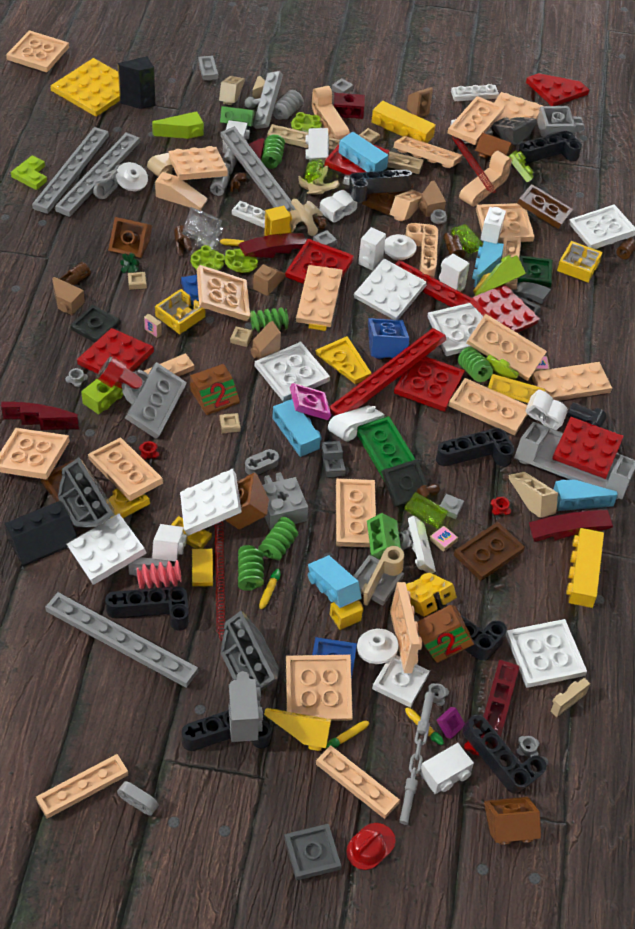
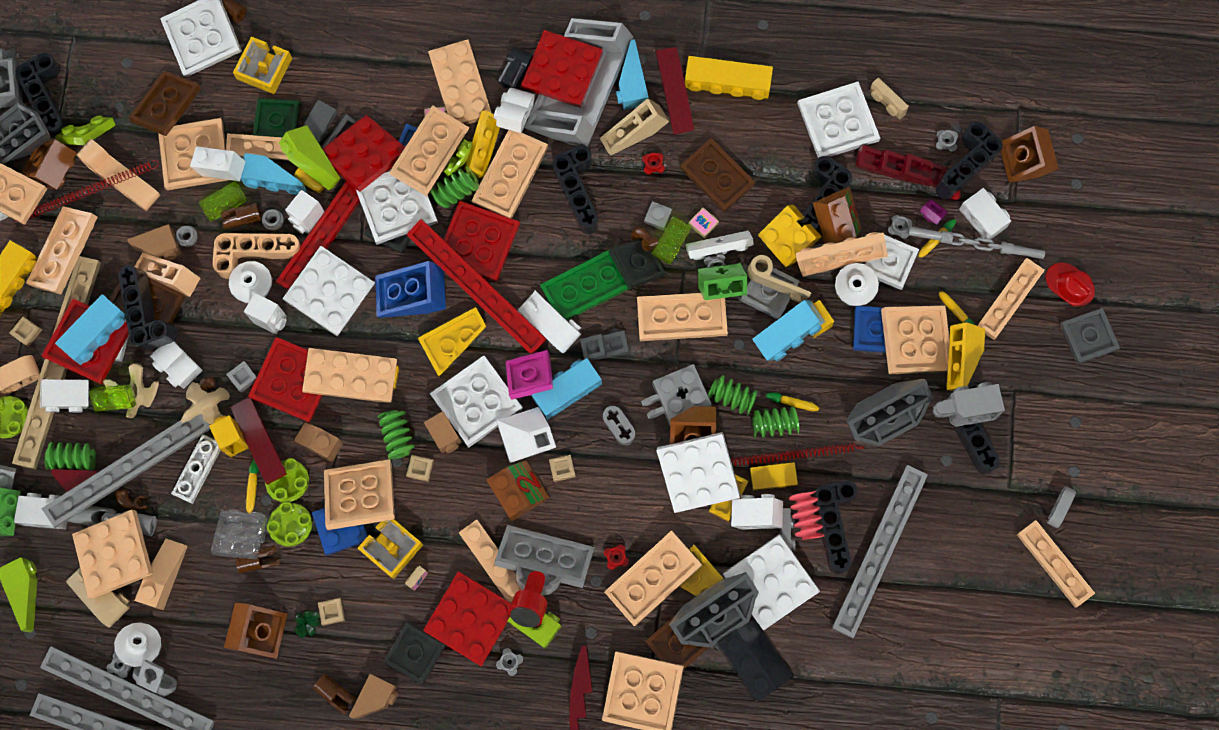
camera: 85 degrees left, 25 degrees up
(259, 397) = (525, 434): none -> white slope

